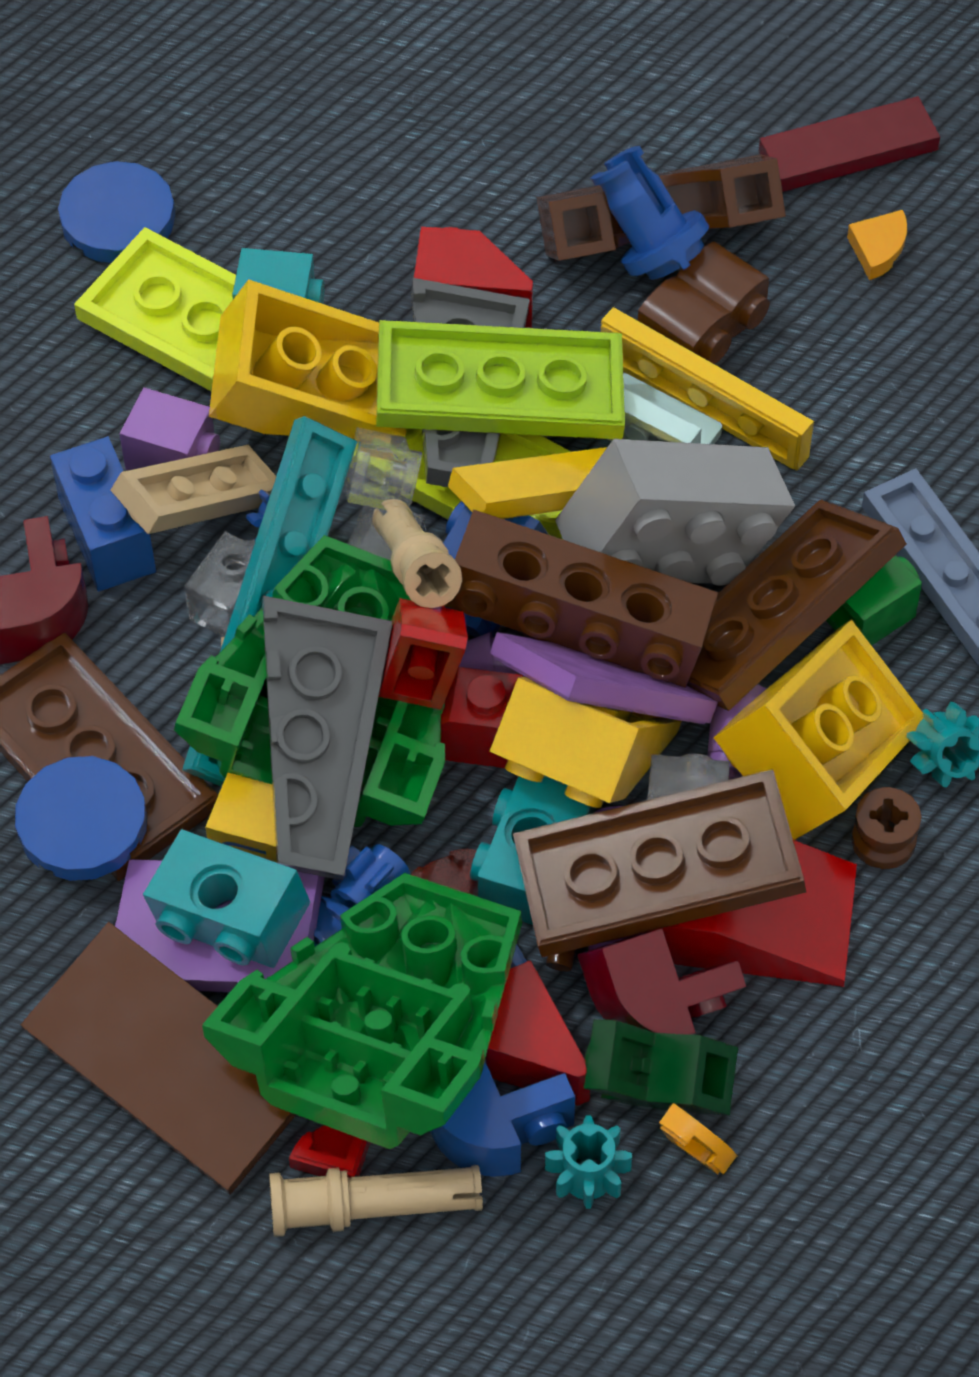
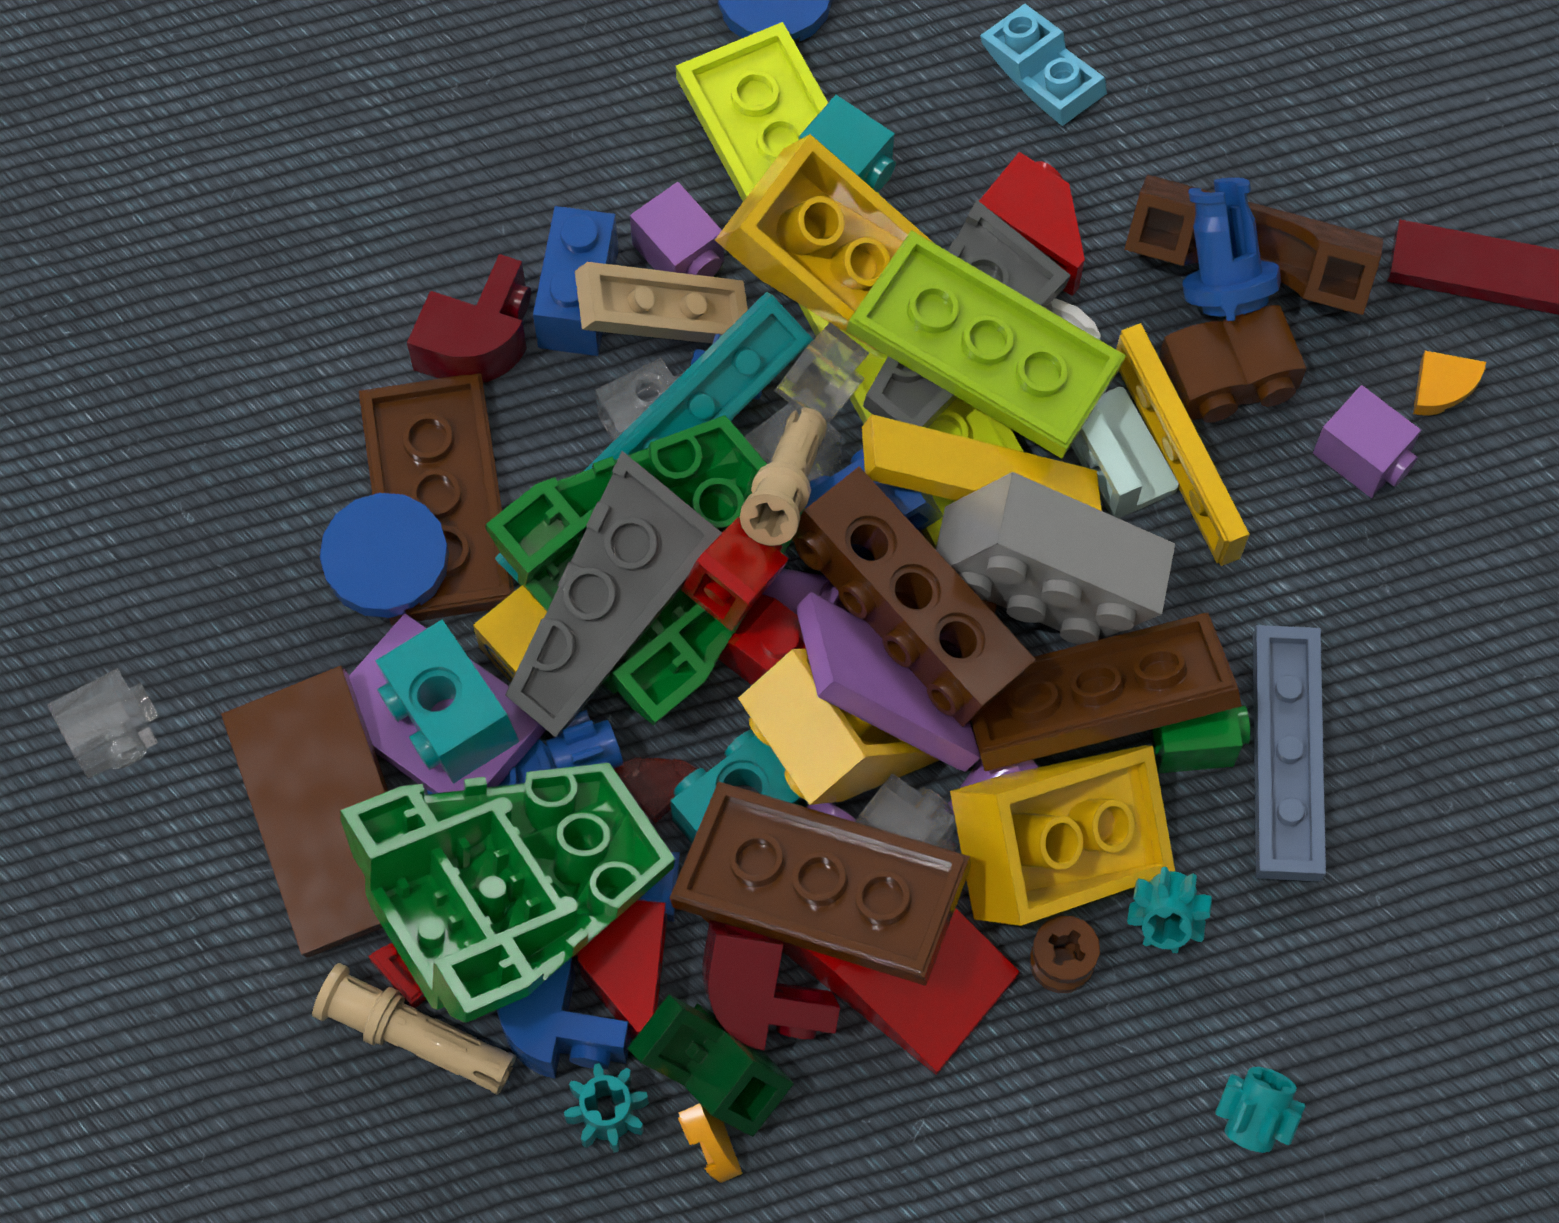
camera: 30 degrees right, 10 degrees up
(374, 160) = (1038, 62): none -> medium azure slope
(854, 313) = (1368, 442): none -> medium lavender brick

